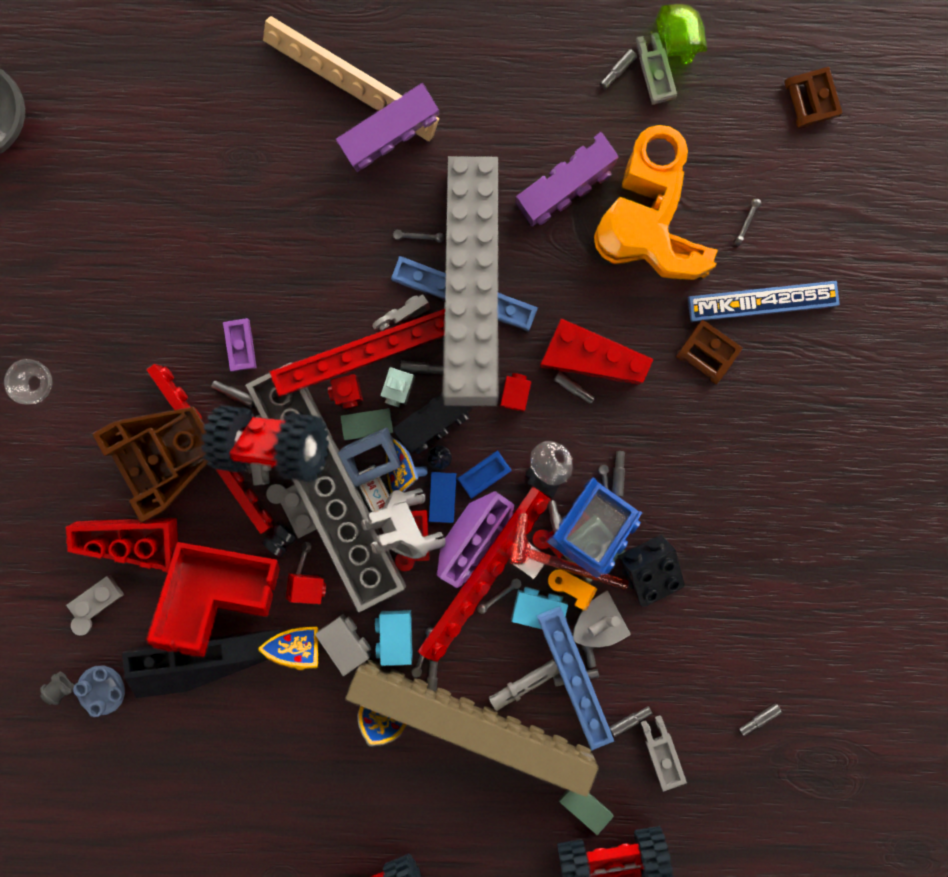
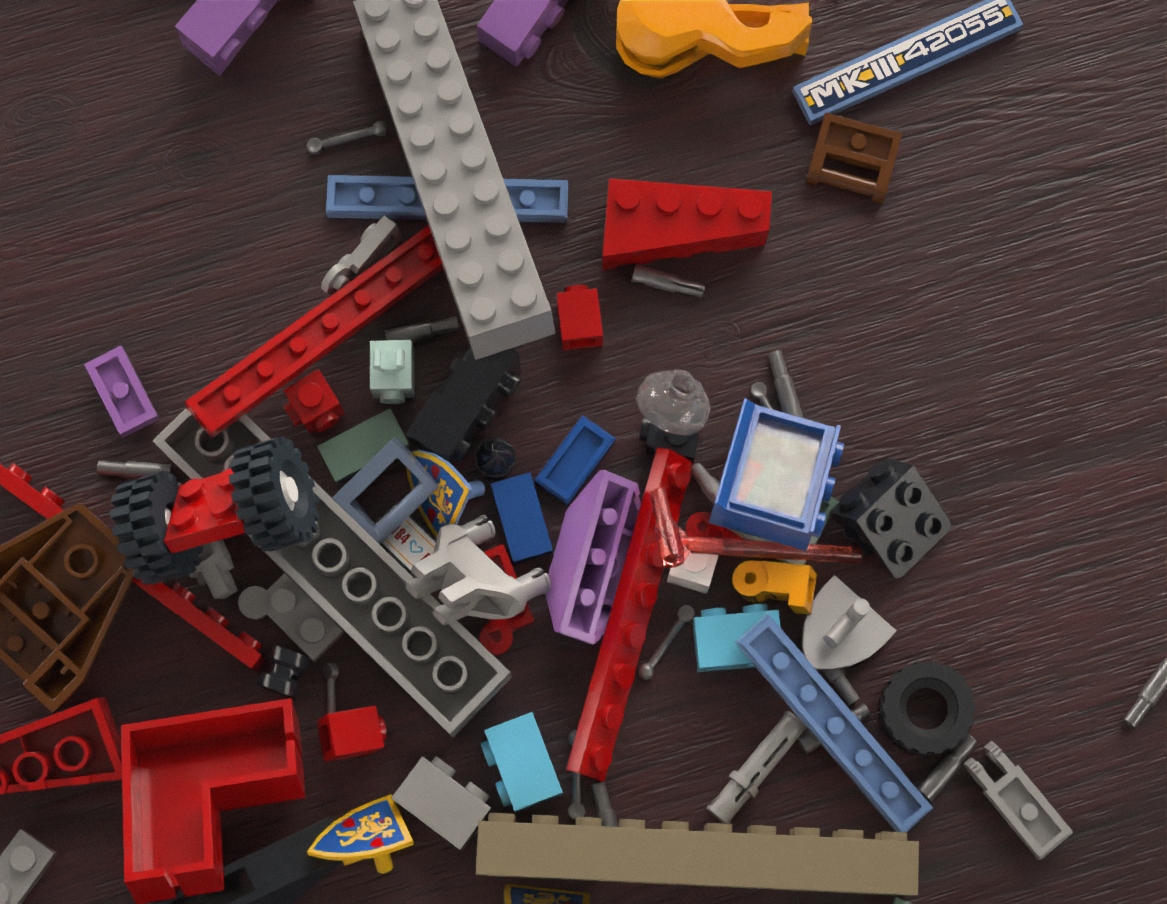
camera: 20 degrees left, 10 degrees down
(650, 690) = (959, 708): none -> black tyre

